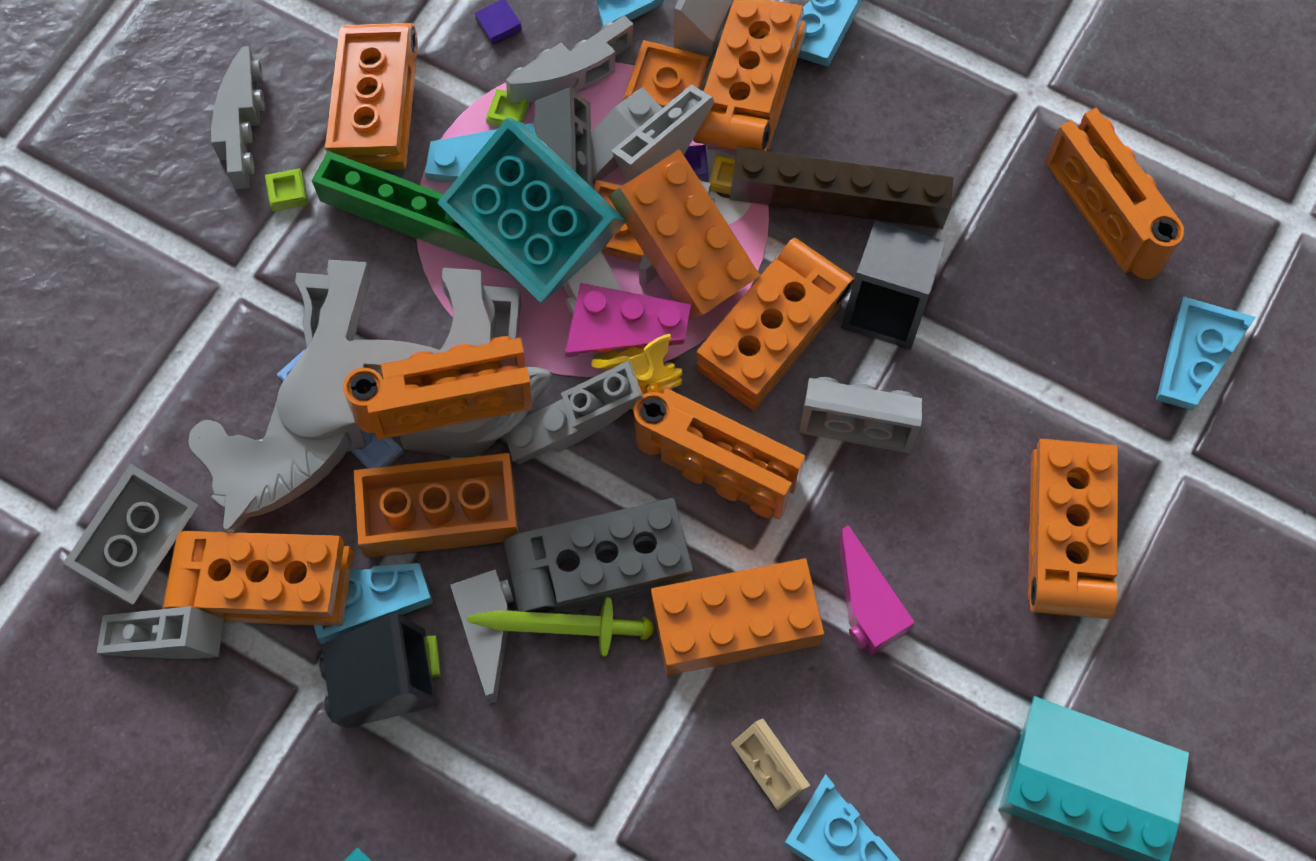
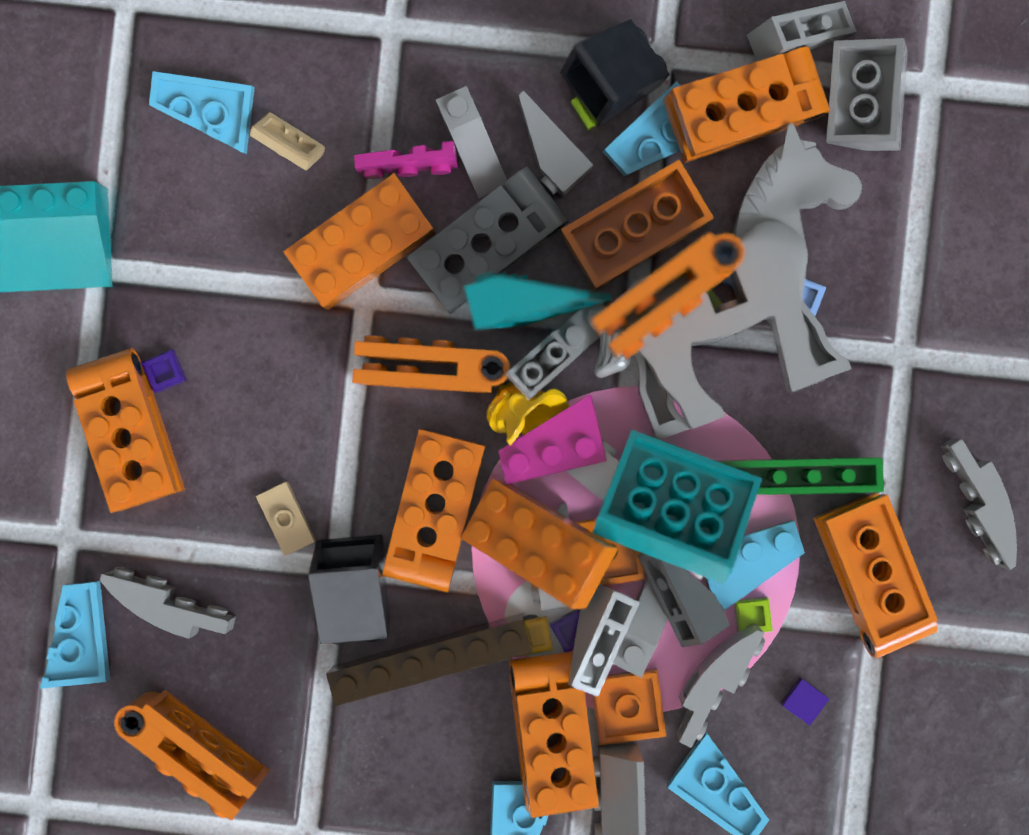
camera: 155 degrees right, 20 degrees up
(286, 190) = (906, 455): lime tile -> none
(566, 684) = (471, 141): none -> light grey slope
(577, 451) = (520, 301): none -> teal slope
(601, 626) = (460, 190): lime sword -> none
(645, 679) = (419, 158): none -> dark pink wing
(861, 414) = (330, 458): light grey slope -> none
(872, 606) = (261, 300): dark pink slope -> none
(934, 379) = (286, 518): none -> tan plate
(1008, 580) = (164, 371): none -> dark purple tile
(1105, 350) = (153, 603): none -> light grey slope

